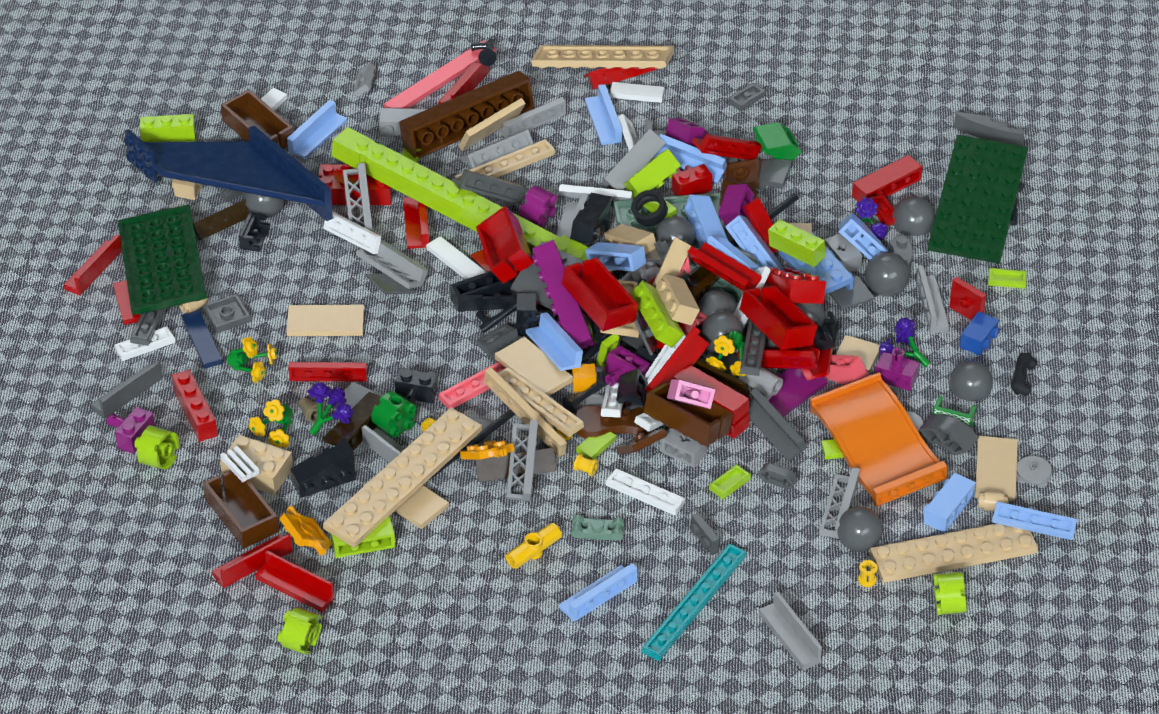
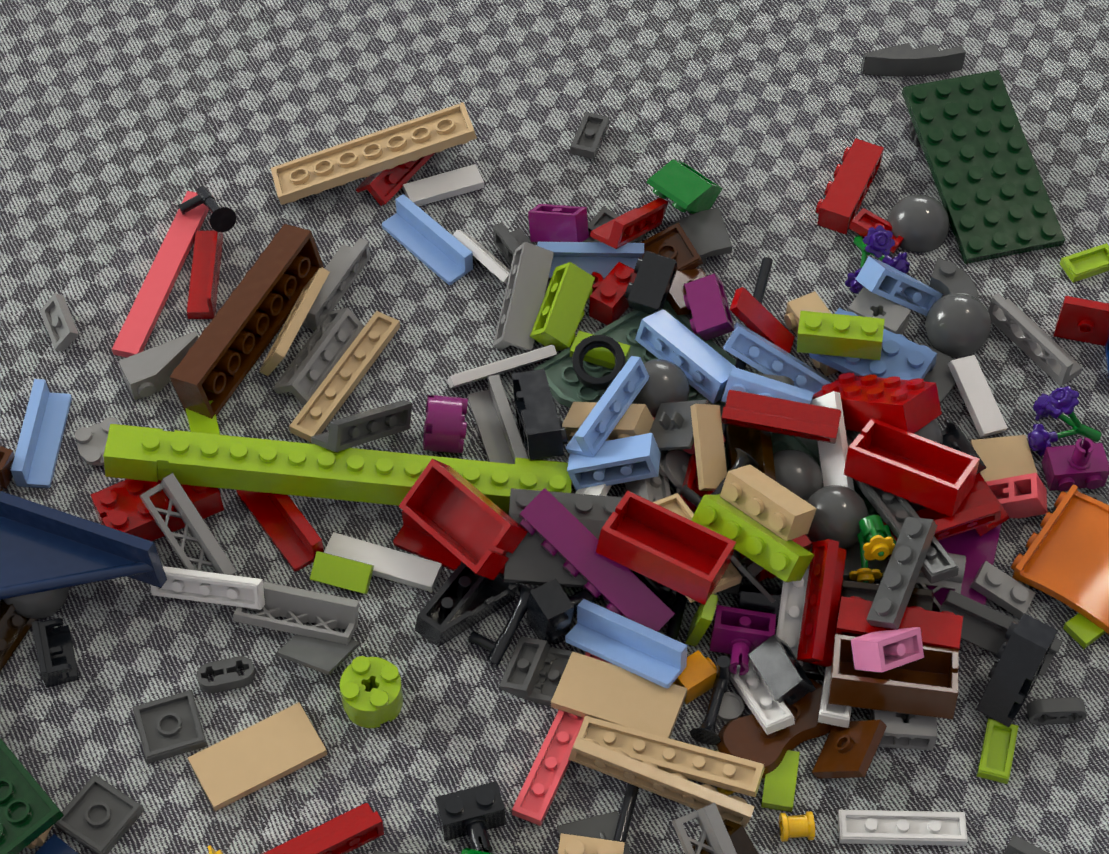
camera: 30 degrees left, 10 degrees up
(290, 289) = (169, 726): none -> dark grey tile
(335, 278) = (225, 674): none -> dark grey beam
(404, 313) = (371, 691): none -> lime brick
(430, 256) = (341, 572): none -> lime tile
(631, 226) = (609, 409): none -> light blue panel
(712, 179) = (651, 283): none -> black brick
(728, 360) = (901, 573): none -> dark grey plate
(763, 440) = (1017, 669): none -> black wedge
(798, 410) = (1003, 589): none -> light grey plate
(867, 313) = (977, 396): none -> white tile

